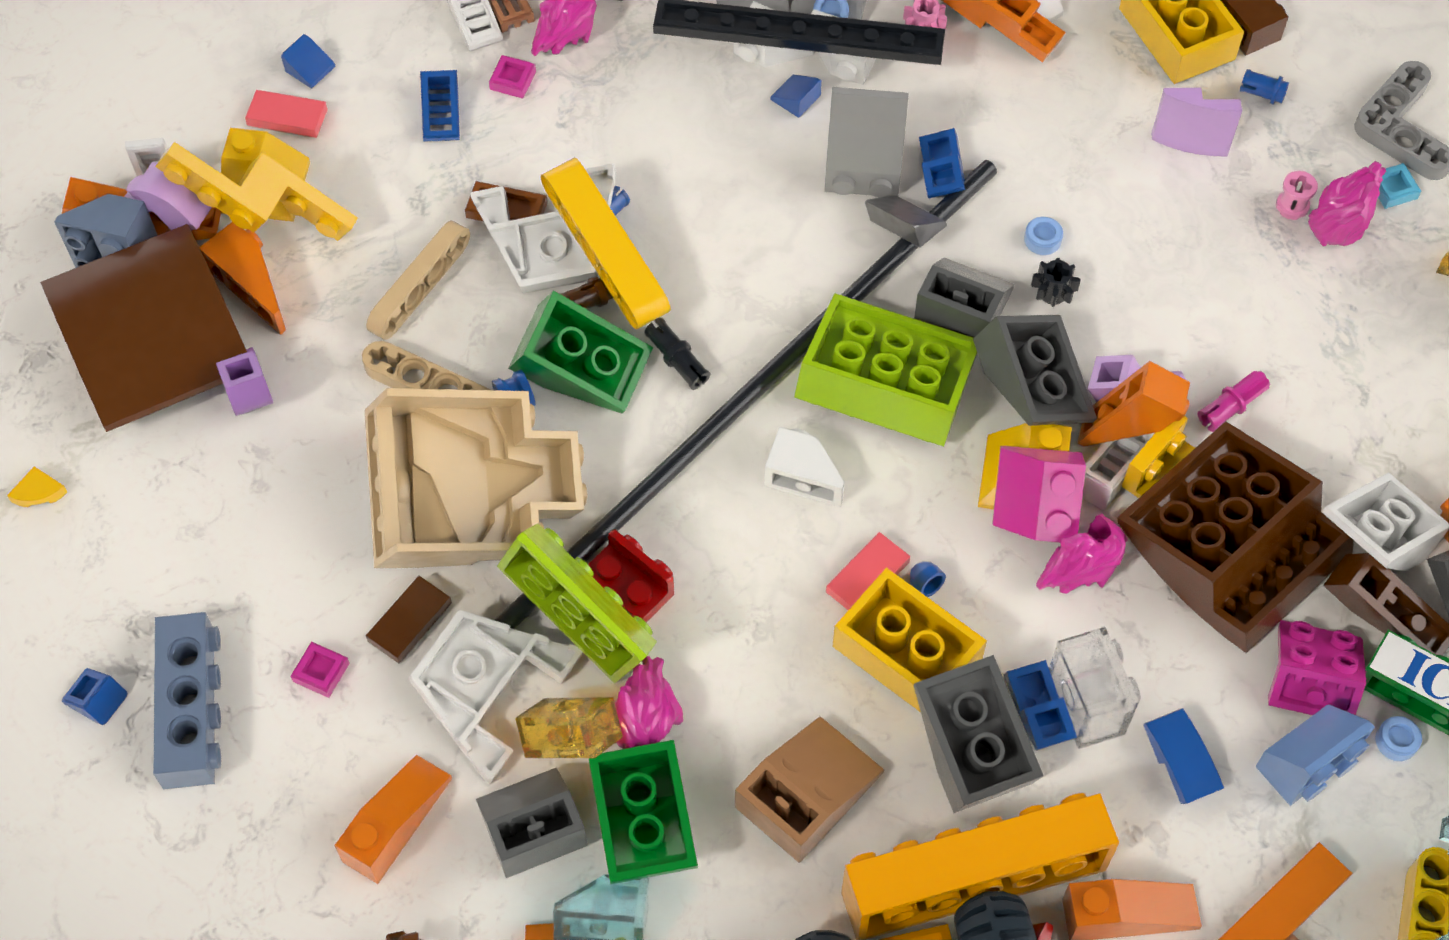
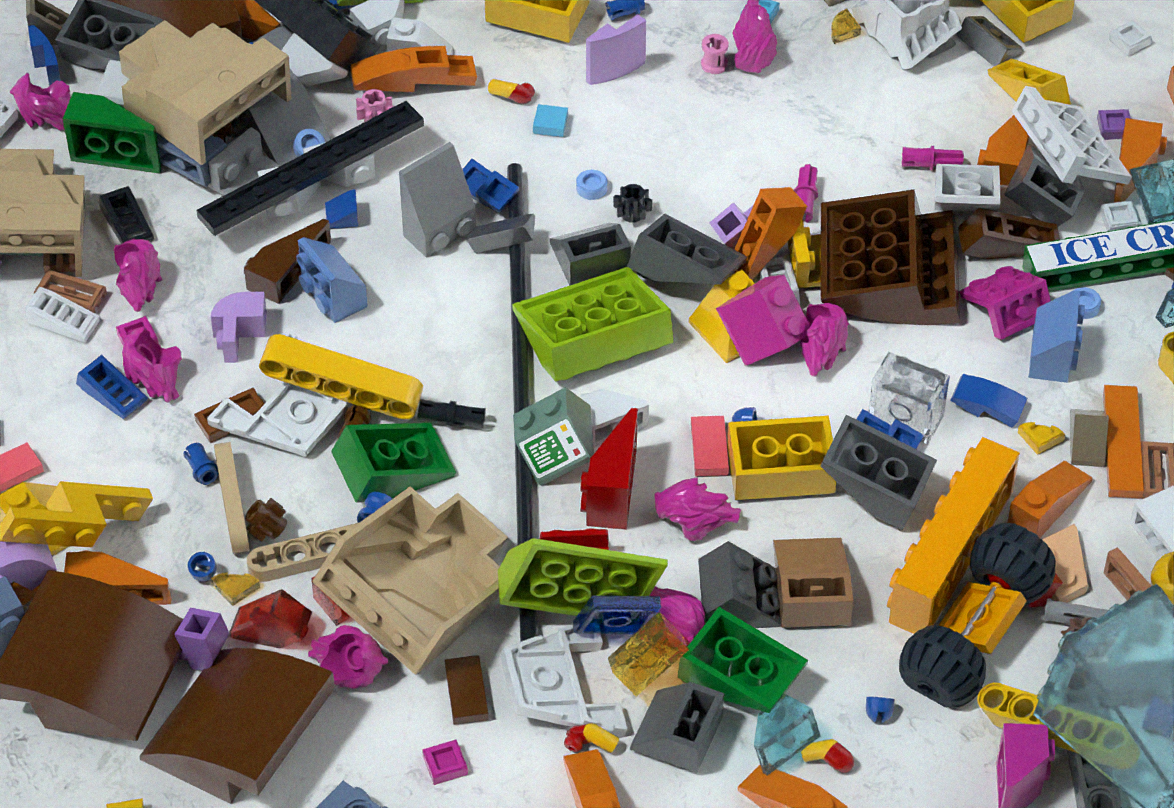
camera: 45 degrees left, 10 degrees down
(193, 486) = (239, 721): none -> reddish brown slope
(322, 328) = (204, 561): none -> blue hinge
(324, 419) = (271, 621): none -> clear red slope
(339, 361) = (235, 586): none -> clear yellow tile
(339, 505) = (350, 655): none -> dark pink hair
(419, 322) = (266, 519): none -> reddish brown gear
(432, 223) = (203, 468): none -> blue pin
(456, 757) = (589, 734): none -> arm
(487, 108) = (151, 364): none -> dark pink hair
(582, 665) = (616, 614): none -> clear blue tile
(596, 121) = (235, 317): none -> lavender brick
(694, 102) = (276, 266): none -> reddish brown slope
(707, 145) = (330, 280): none -> medium blue slope
(727, 447) = (554, 435): none -> sand green slope
(728, 734) = (739, 585): none -> dark grey slope
(738, 527) = (610, 477): none -> red slope
(777, 624) = (695, 508): none -> dark pink hair
(1066, 92) = (512, 91): none -> arm
(1073, 146) = (550, 120): none -> medium azure tile
(1197, 838) = (1040, 437): none -> yellow tile
(1244, 879) = (1088, 437): none -> dark tan slope
(1402, 462) = (930, 157): none -> dark pink axle

